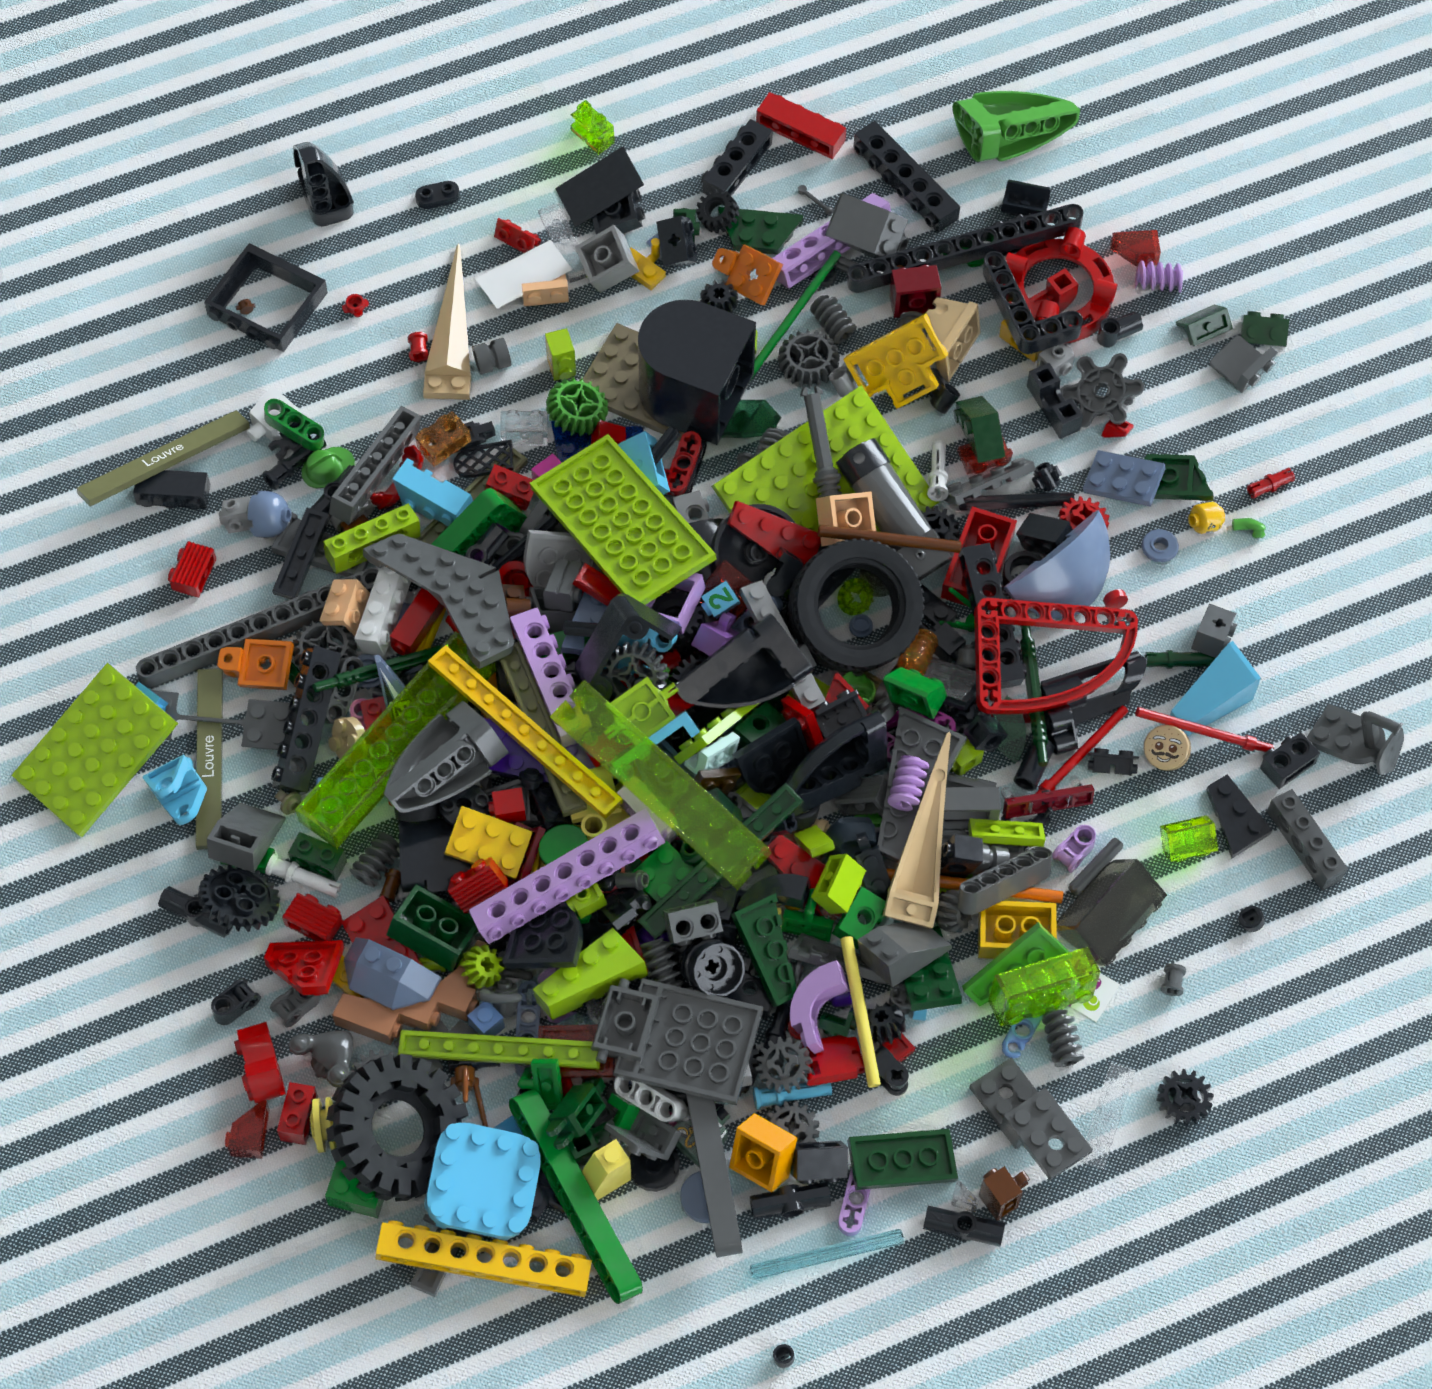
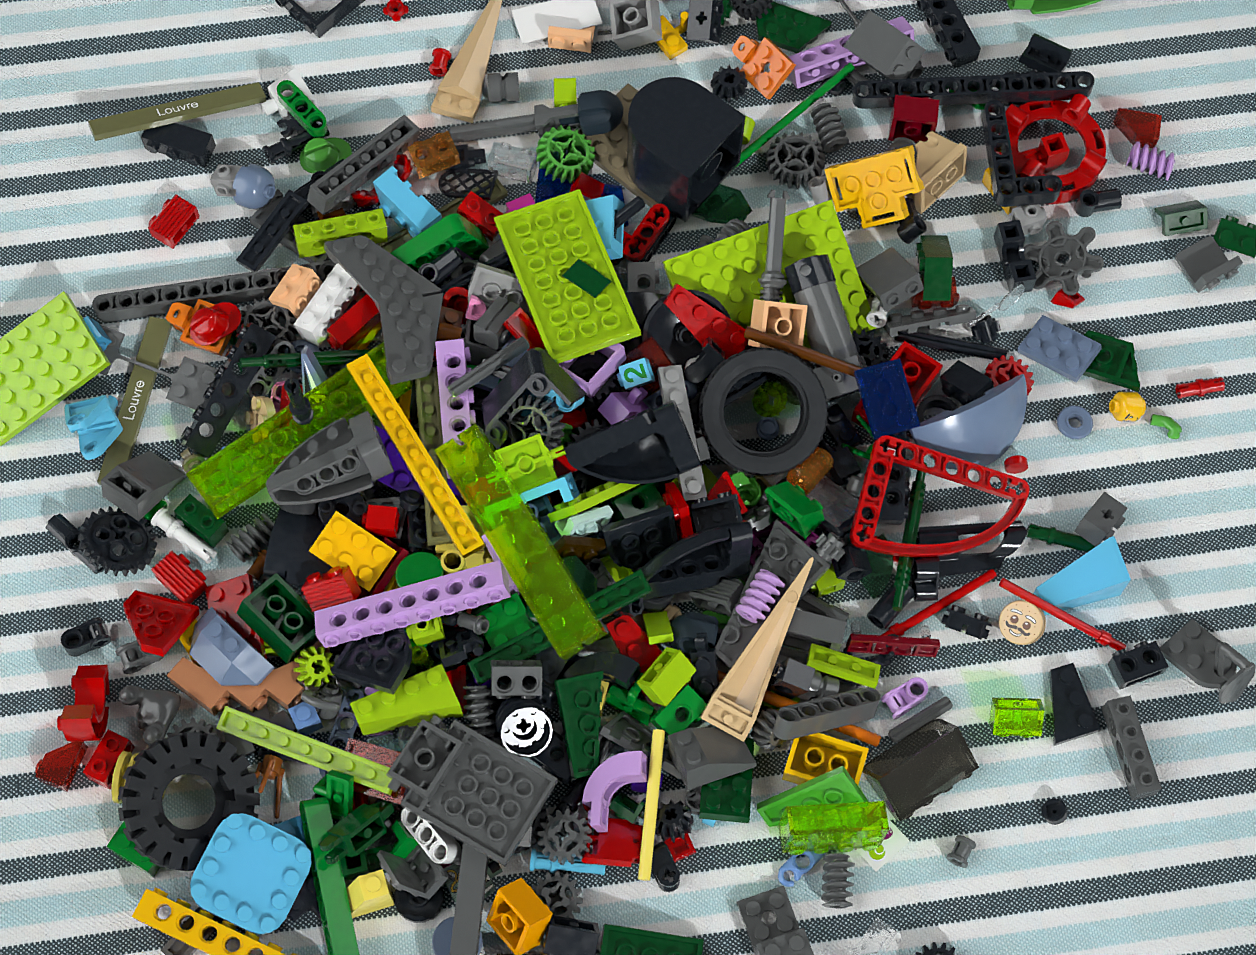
camera: 15 degrees right, 5 degrees up
(271, 658) = (214, 323): none -> red piece
(394, 710) = (299, 405): none -> black pin
(537, 578) = (475, 309): none -> bright pink tile
(573, 626) = (488, 366): none -> dark grey axle
(589, 929) = (421, 657): none -> clear neon green pin
(596, 357) = (595, 113): none -> piece
(644, 517) = (587, 278): none -> dark green sticker
(940, 449) = (890, 278): none -> dark grey panel
(961, 719) = (830, 547): none -> dark grey gear
(975, 562) = (886, 398): none -> clear blue plate
(1059, 446) = (1008, 300): none -> clear piece

